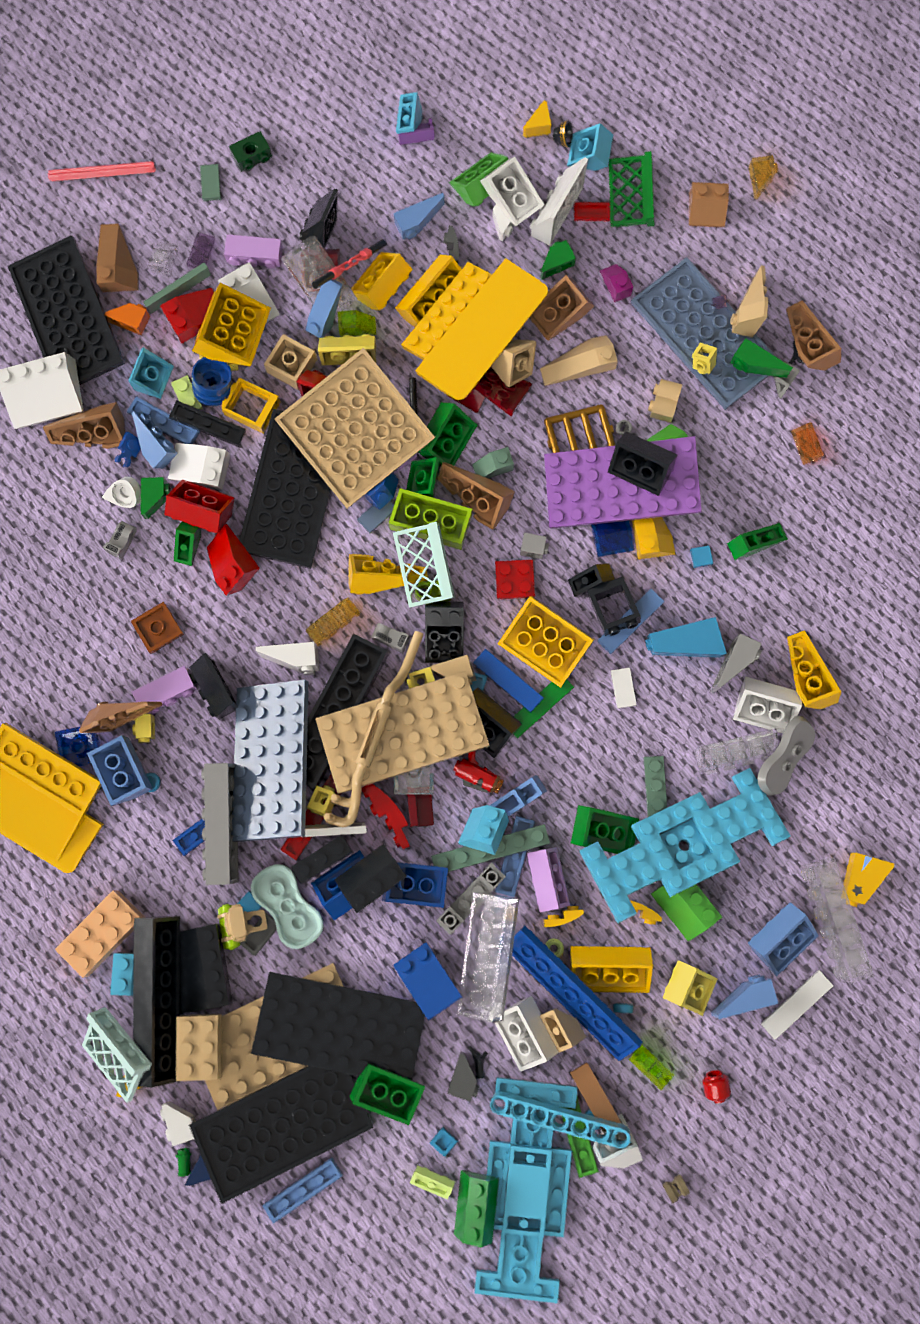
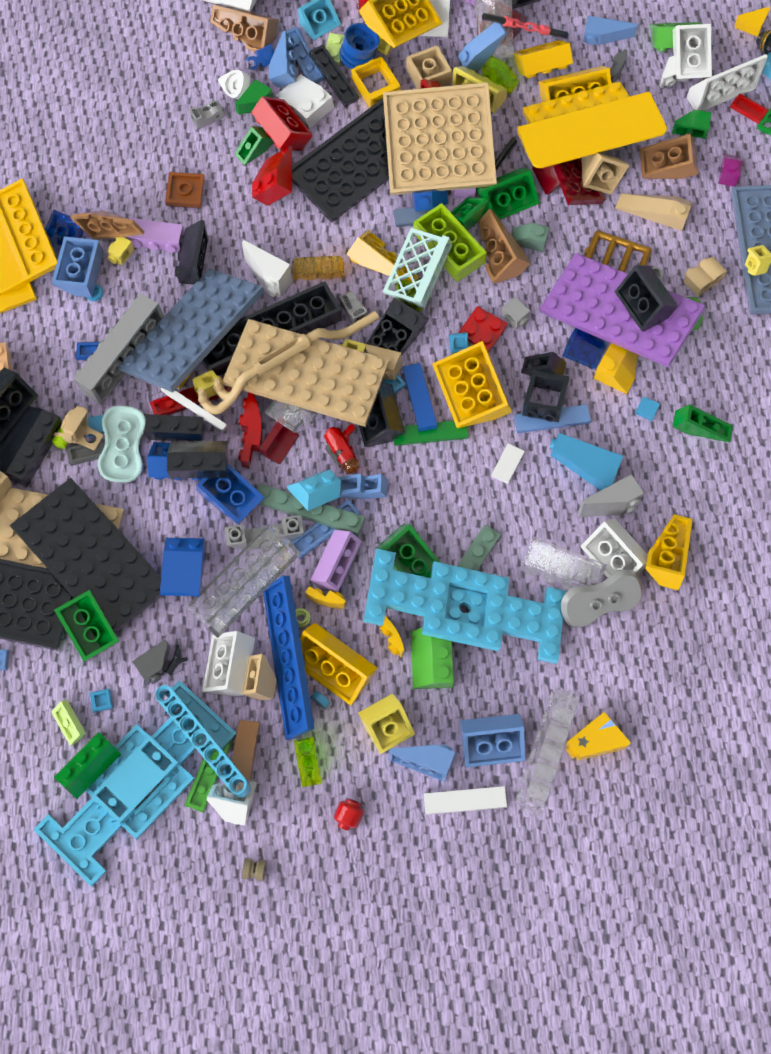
camera: 35 degrees right, 10 degrees down
(504, 606) = (458, 342): none -> dark azure tile

